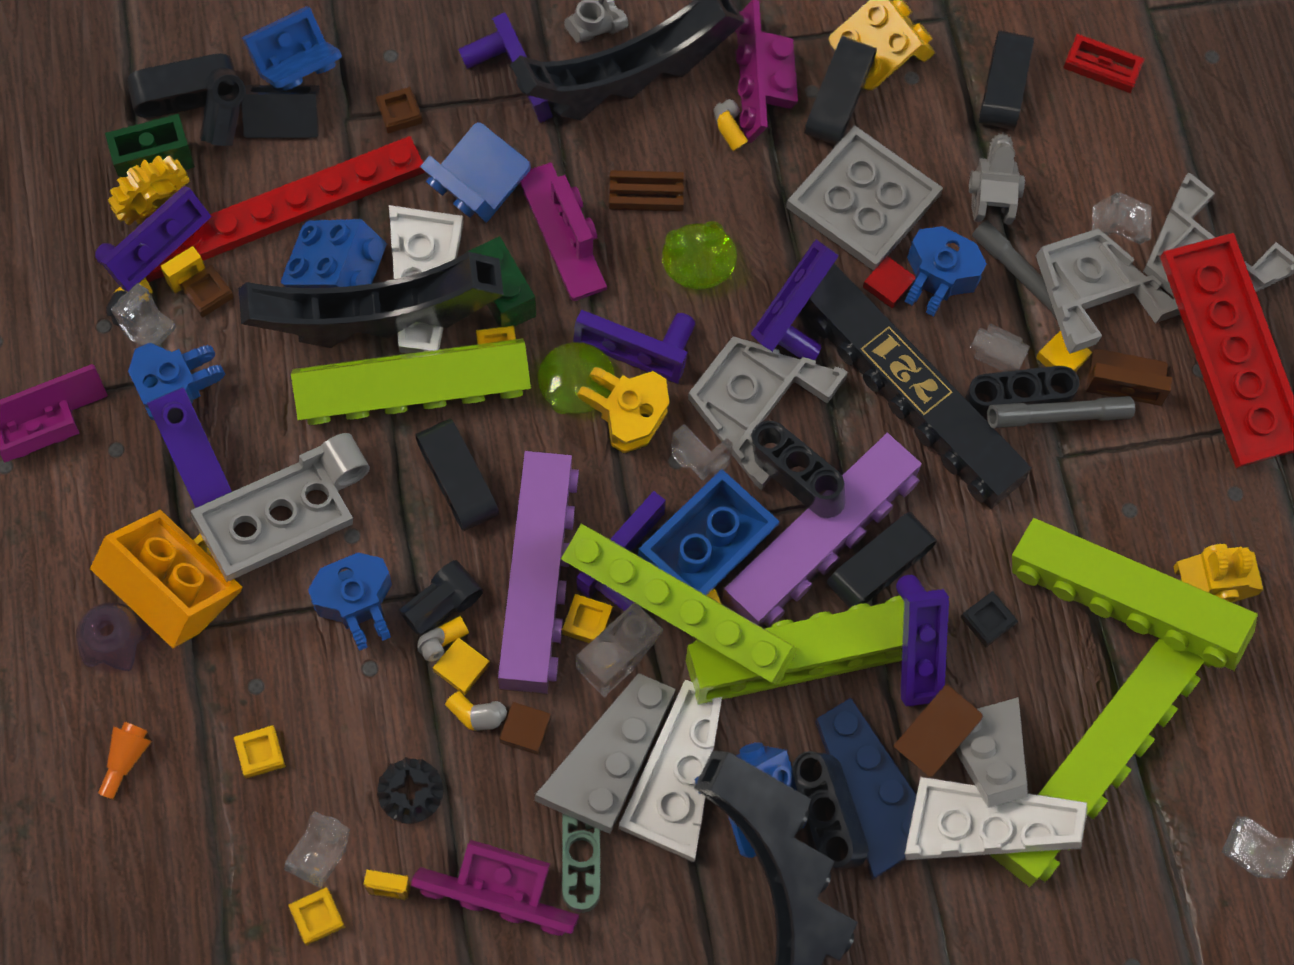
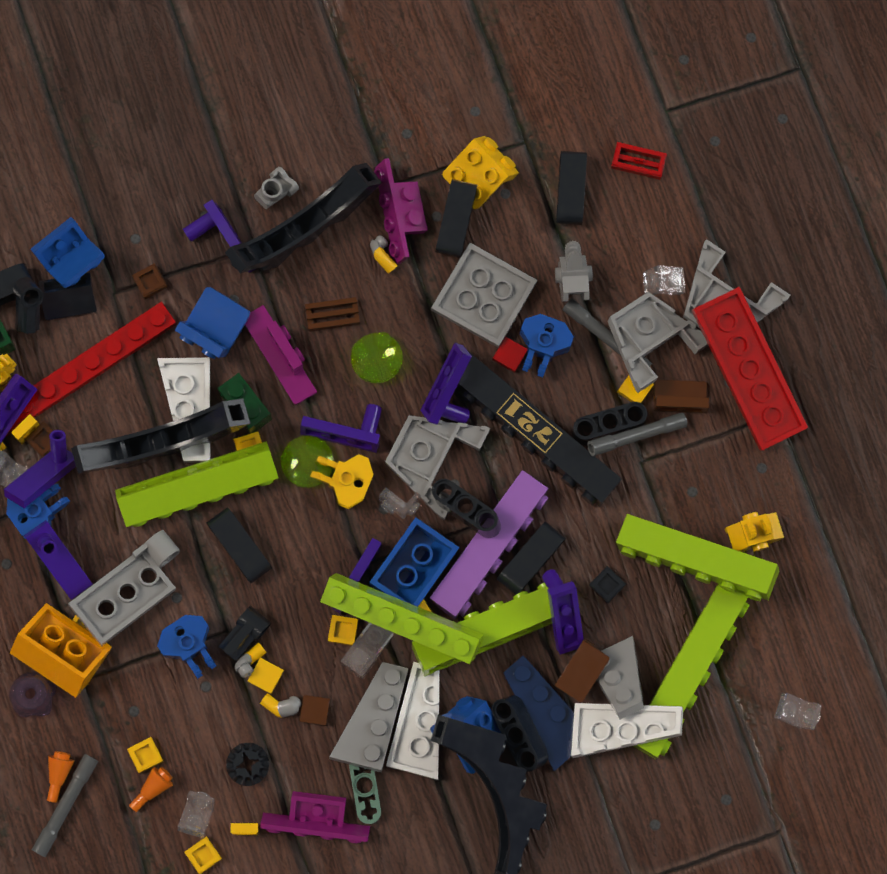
camera: 10 degrees left, 10 degrees up
(91, 842) = (49, 833): none -> dark grey piece
(195, 327) = (43, 473): none -> dark purple piece
(266, 795) = (155, 784): none -> orange cone
(334, 255) = (126, 403): blue bracket -> none
(536, 572) = (303, 604): medium lavender brick -> none
(999, 348) = (591, 393): clear brick -> none

